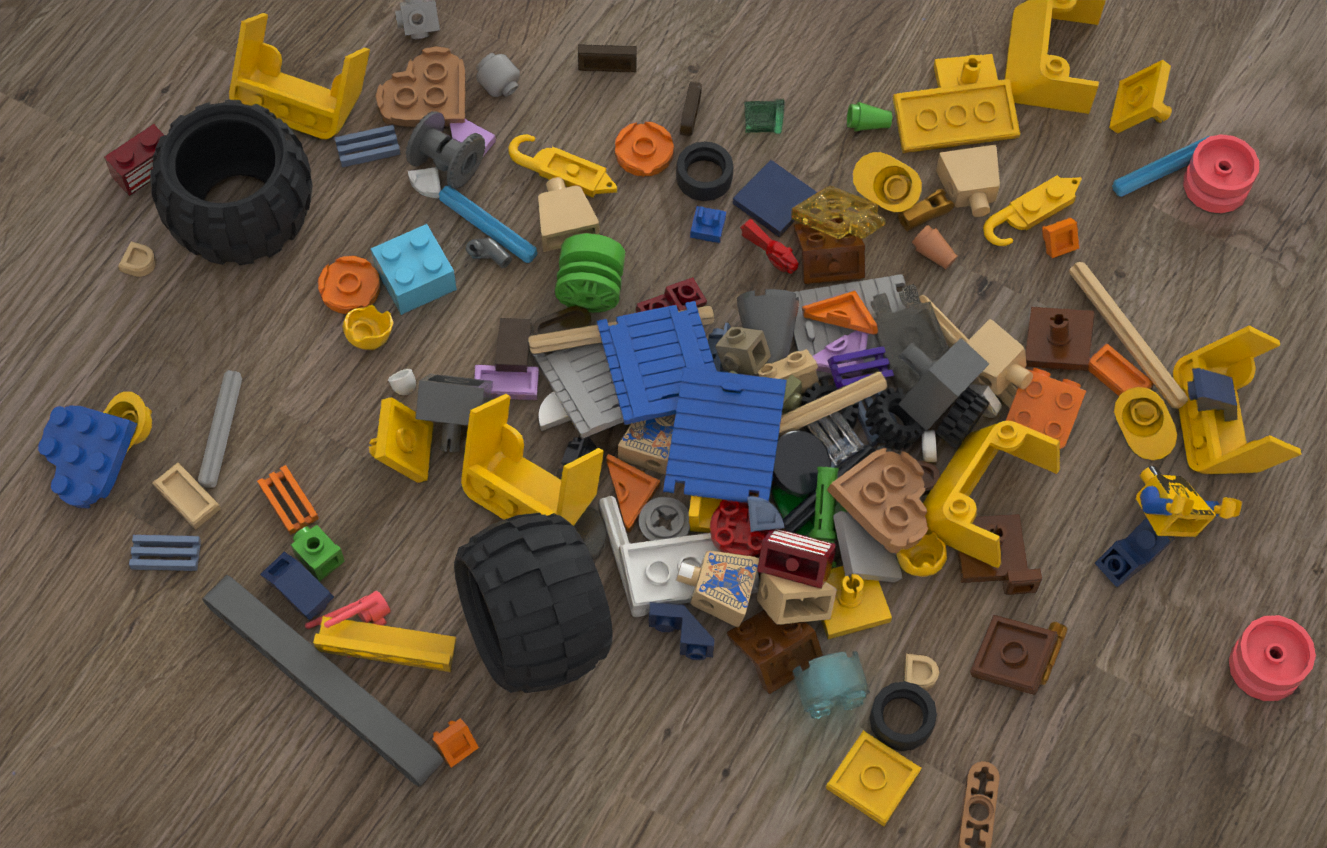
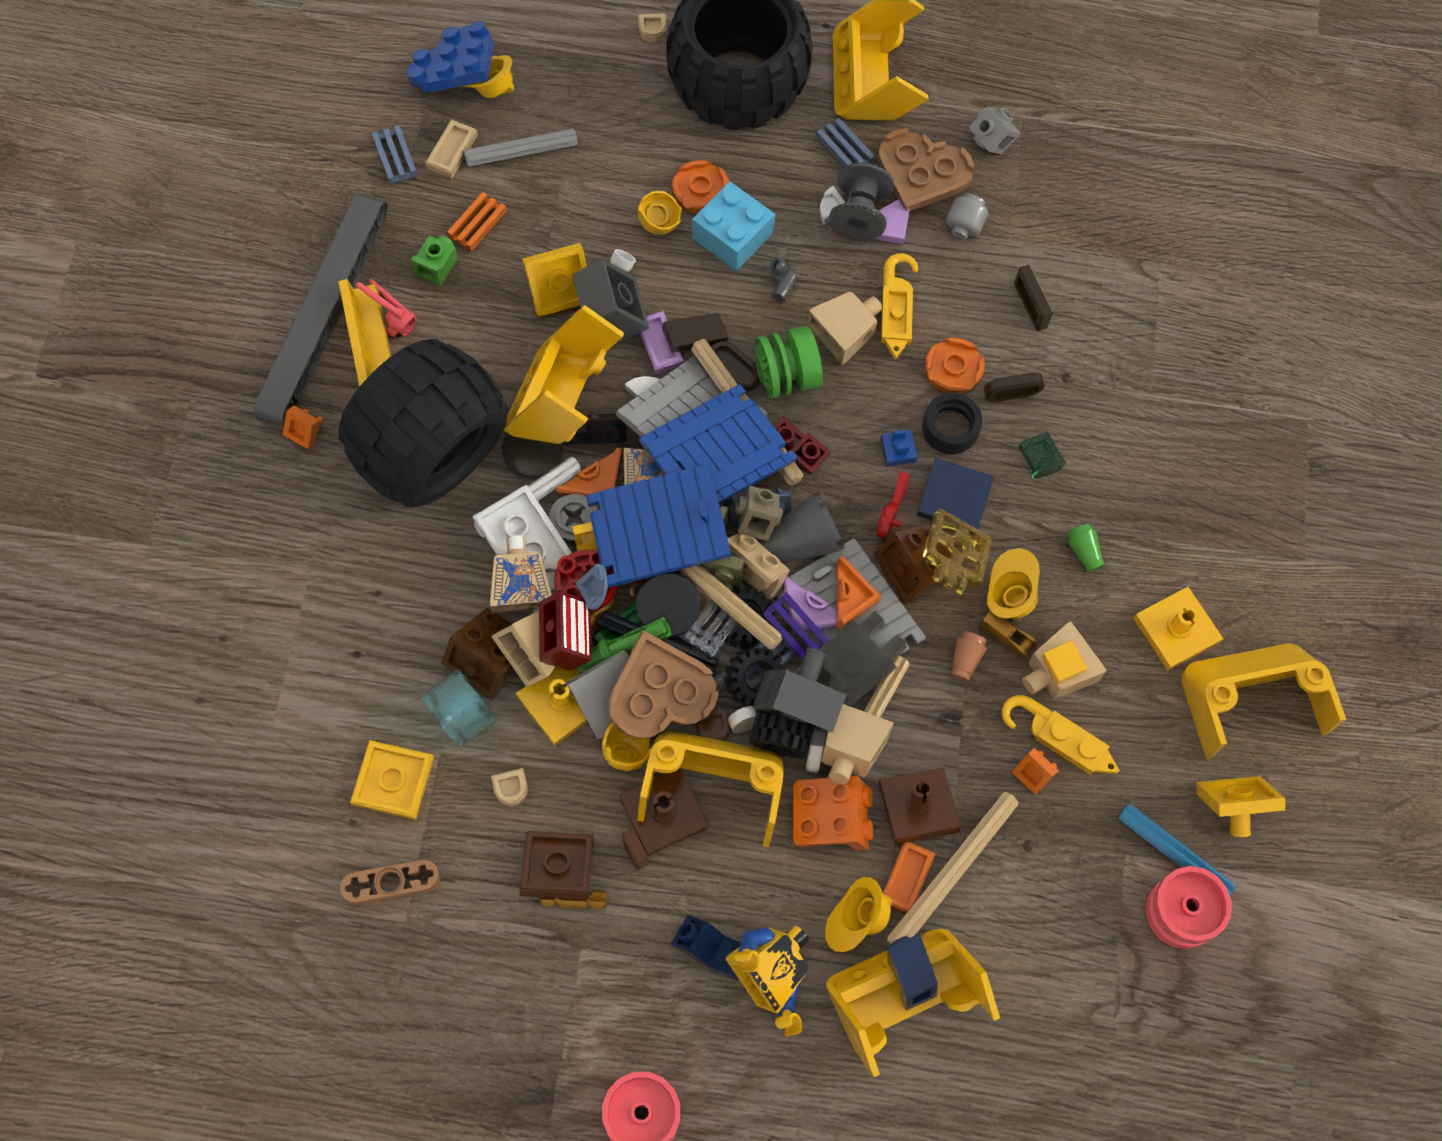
camera: 65 degrees right, 5 degrees up
(297, 585) = (395, 257): dark blue slope -> none
(488, 224) = (810, 269): dark azure axle -> none
(695, 640) = (470, 574): dark blue slope -> none
(918, 696) = (446, 761): black tyre -> none
(956, 116) = (1130, 627): yellow tile -> none
(978, 170) = (1064, 662): none -> yellow tile

